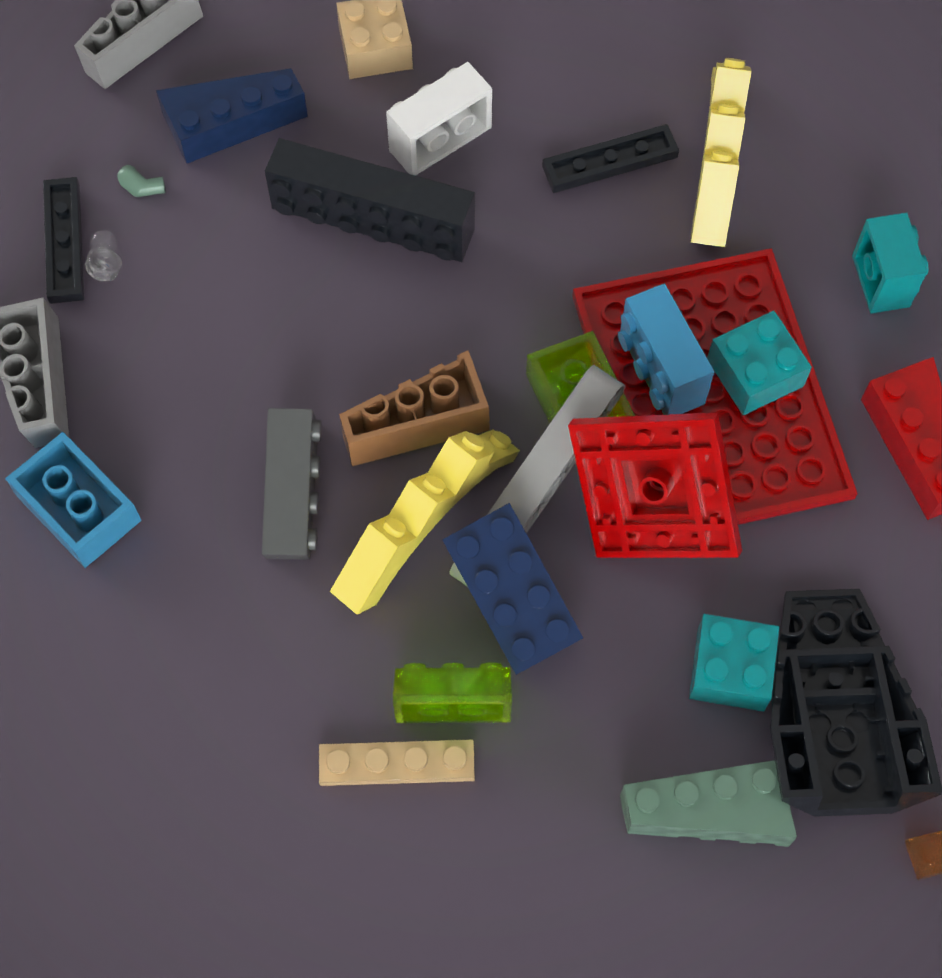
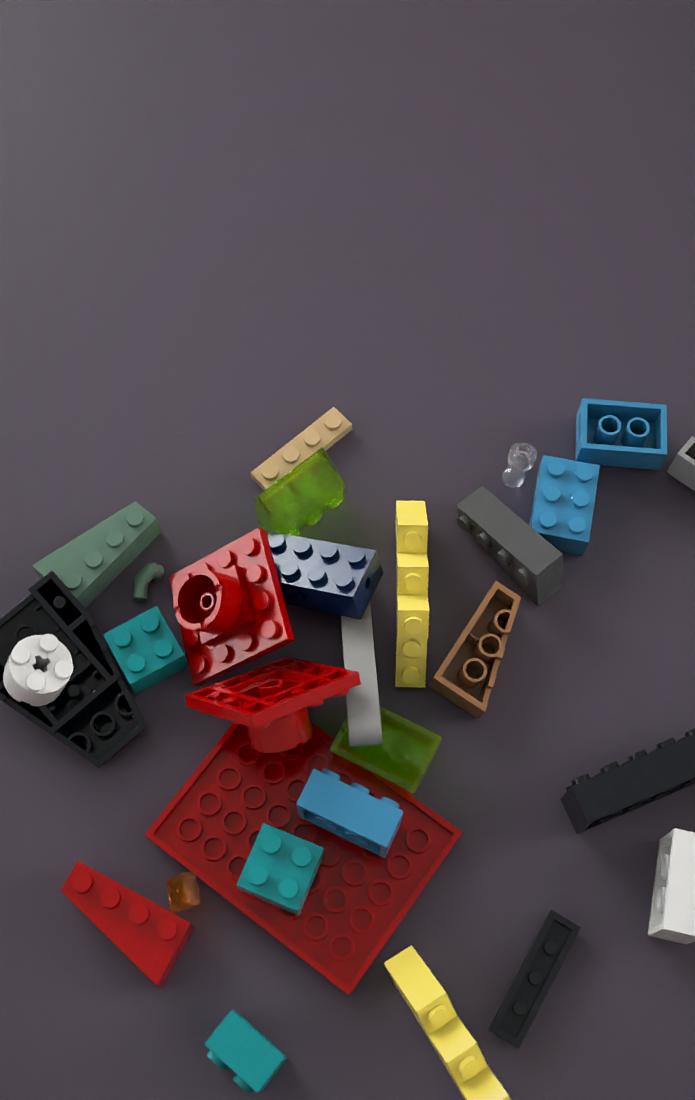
camera: 140 degrees right, 0 degrees up
(202, 481) = (564, 503): none -> dark azure brick
(214, 553) = (514, 474): none -> clear plate
(621, 625) = (230, 607): none -> red piece
(678, 749) = (143, 578): none -> sand green arm
(854, 423) = (183, 892): none -> clear orange plate
(867, 699) = (52, 671): none -> white brick

